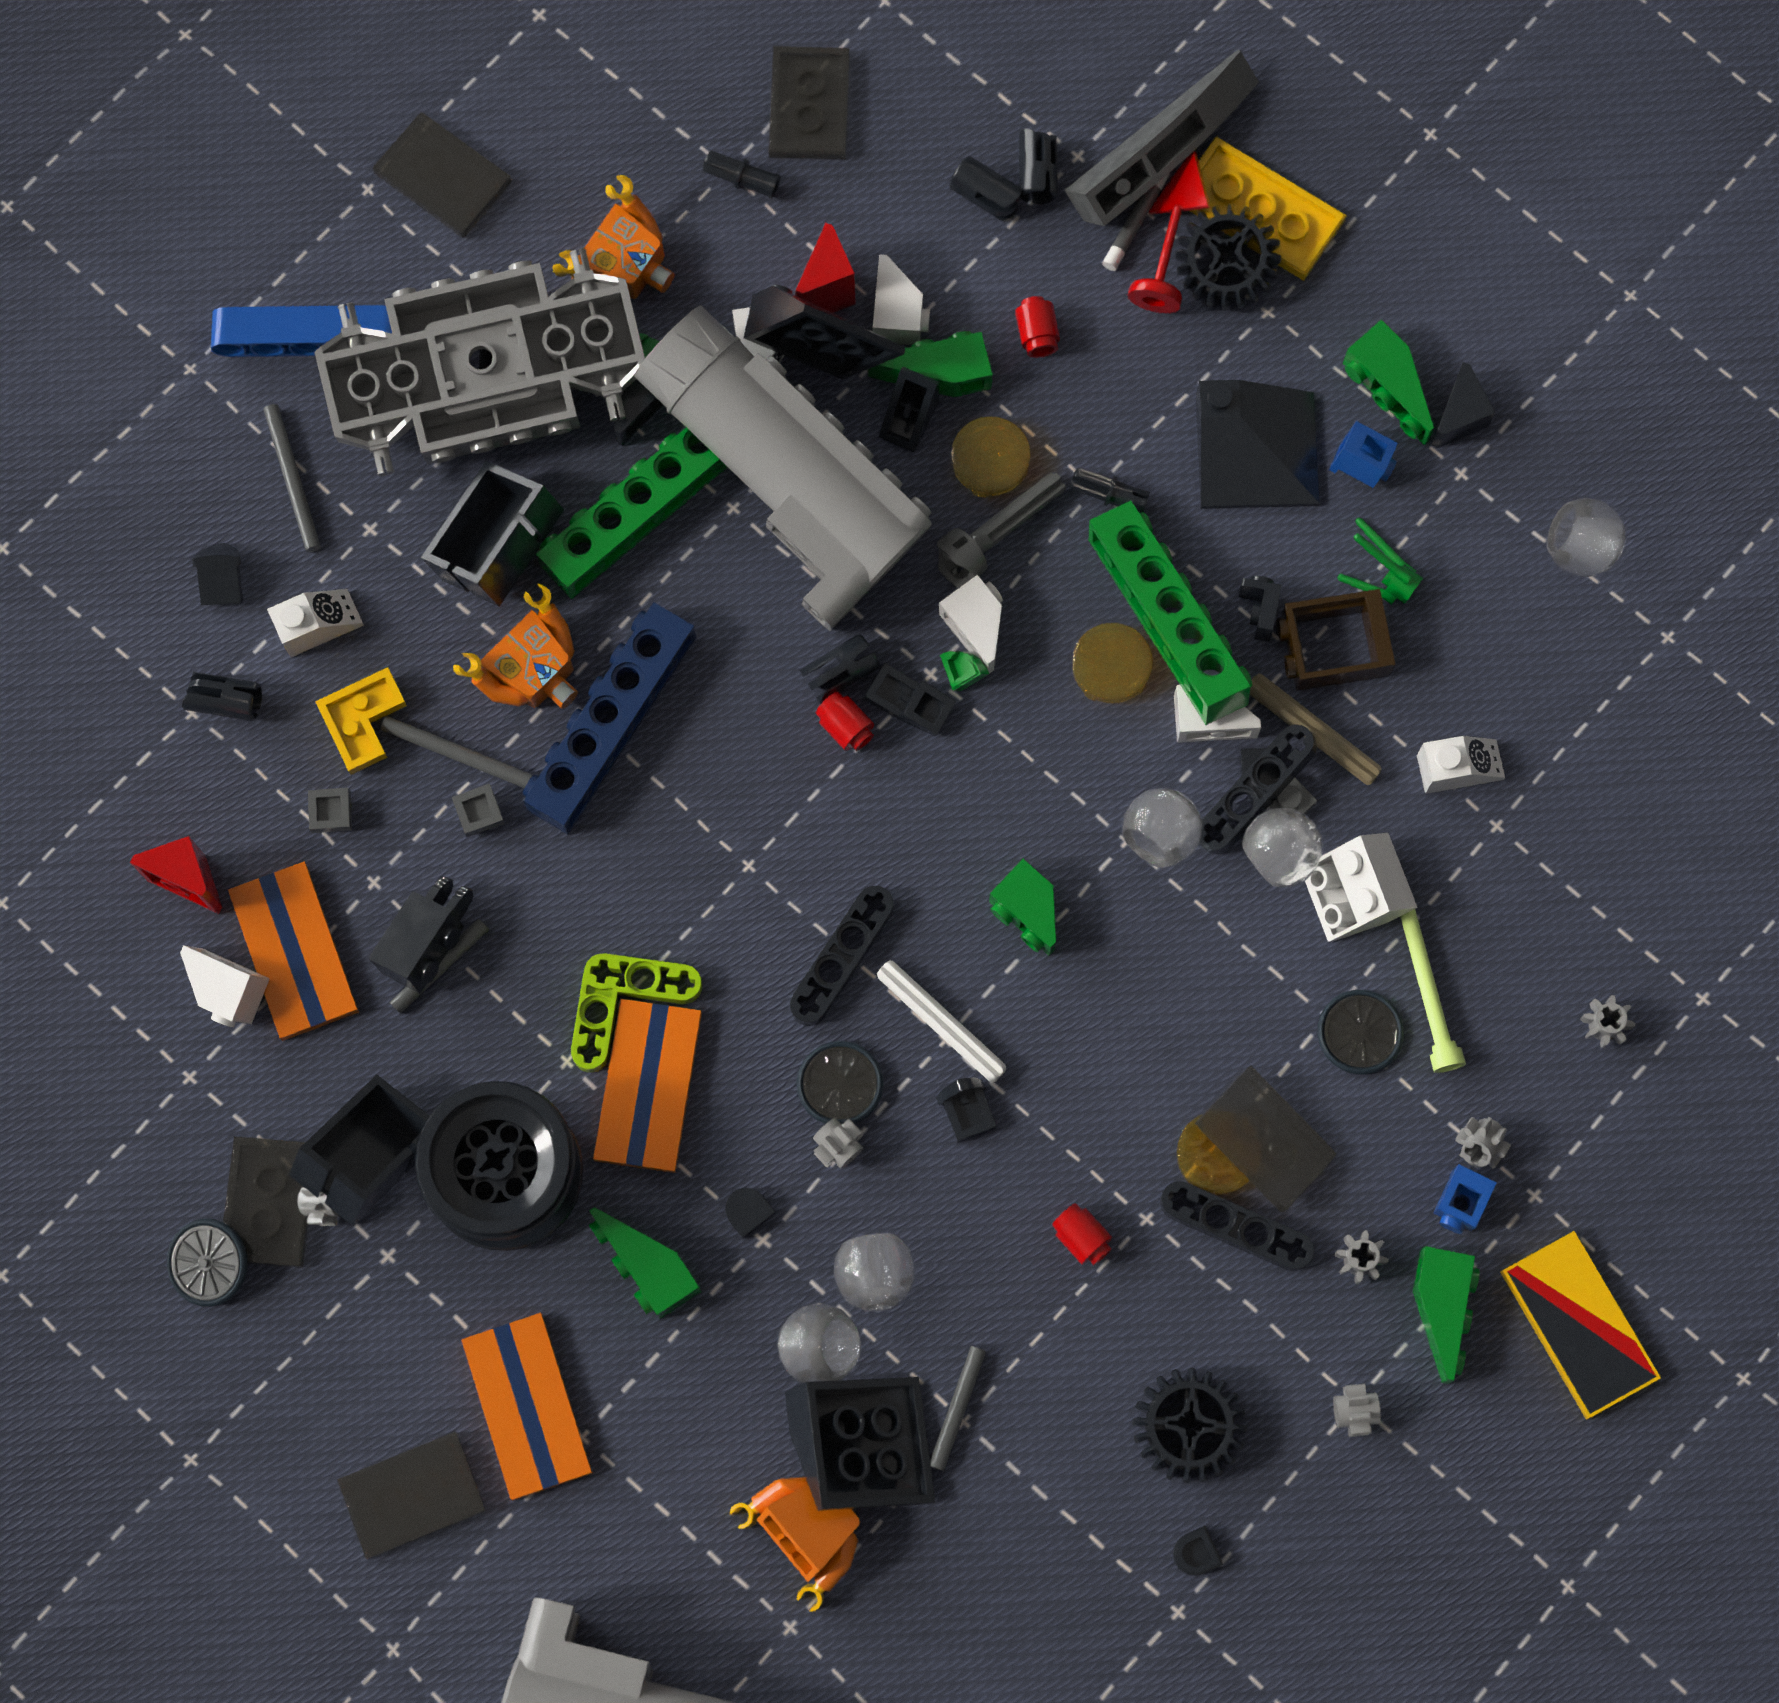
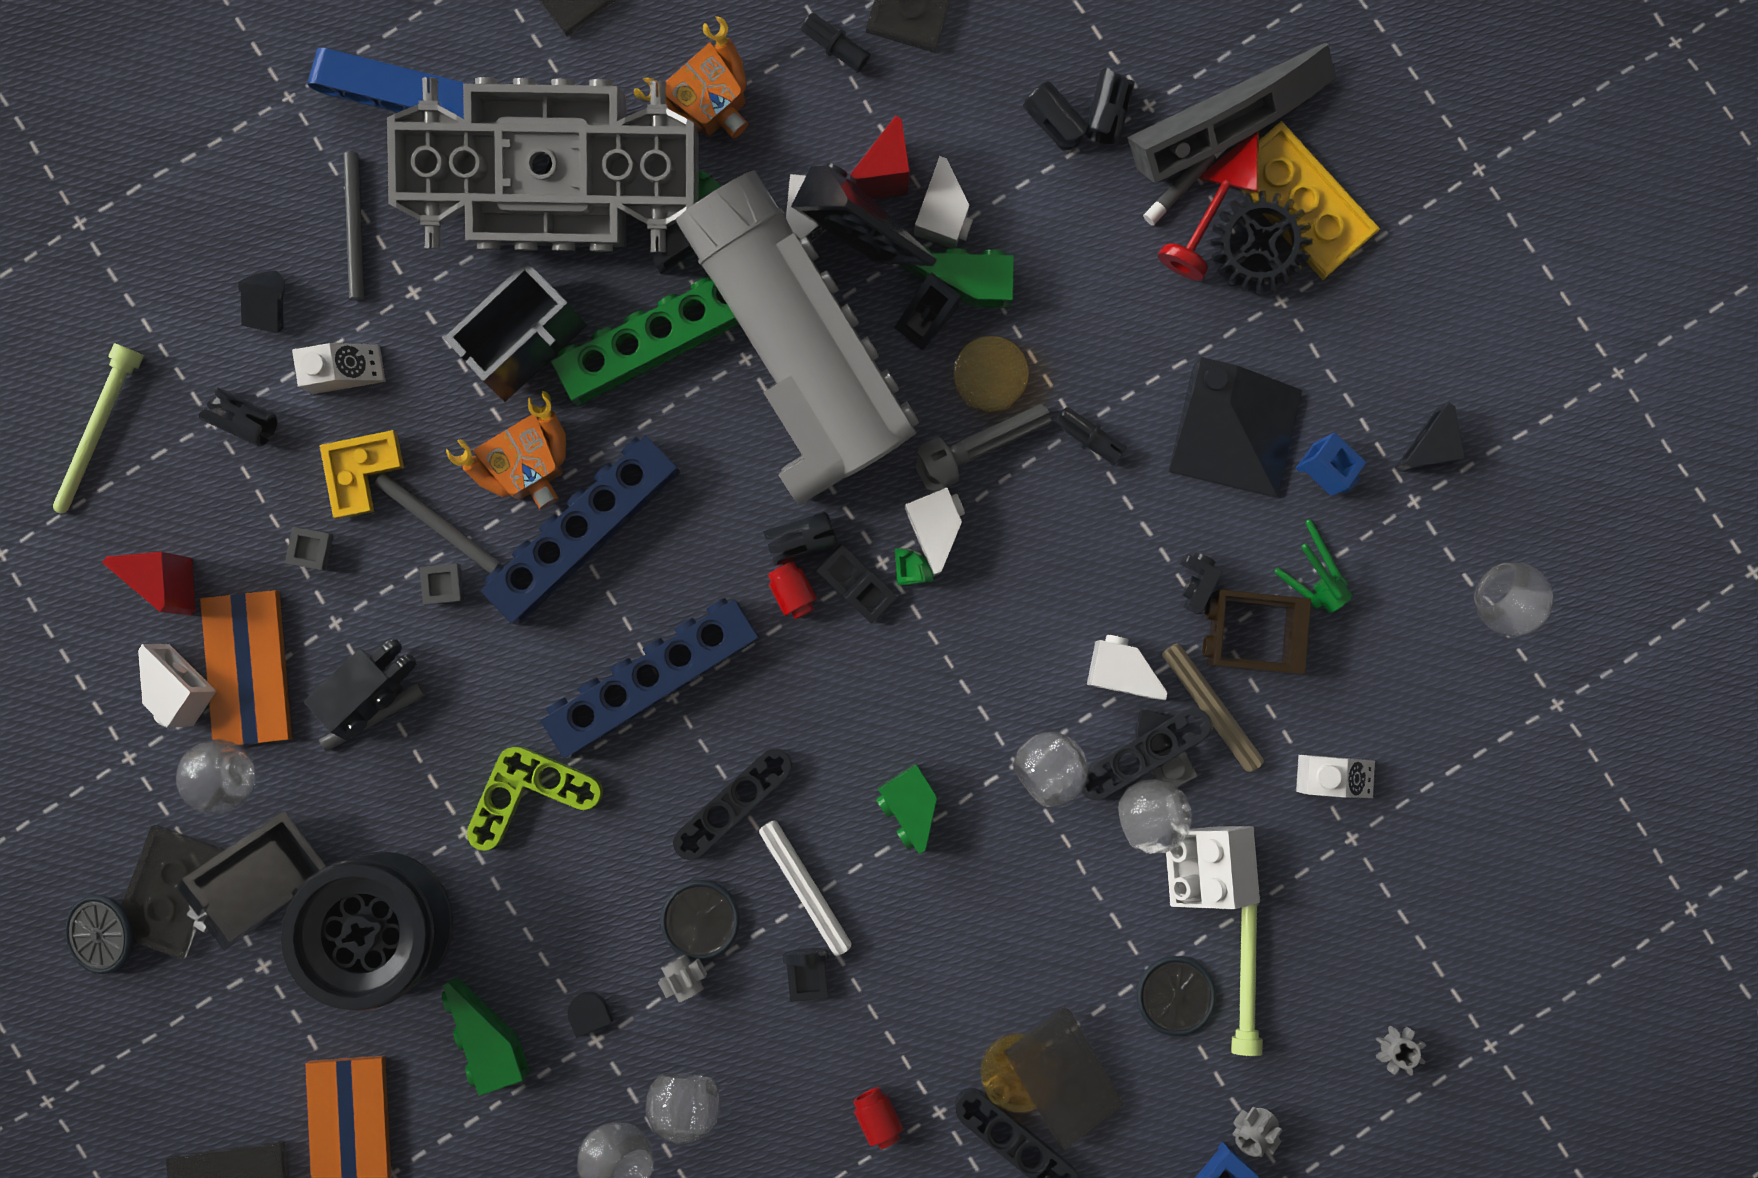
camera: 10 degrees right, 10 degrees up
(86, 673) = (122, 363): none -> yellowish green piece
(295, 1060) = (216, 776): none -> clear helmet
(647, 1086) = (529, 876): orange tile -> none
(661, 928) = (562, 720): none -> dark blue brick
(1038, 327) = (1067, 262): red brick -> none
(1112, 663) = (1048, 598): clear yellow tile -> none
(1210, 695) = (1126, 662): green brick -> none
(1388, 371) = (1378, 393): green slope -> none

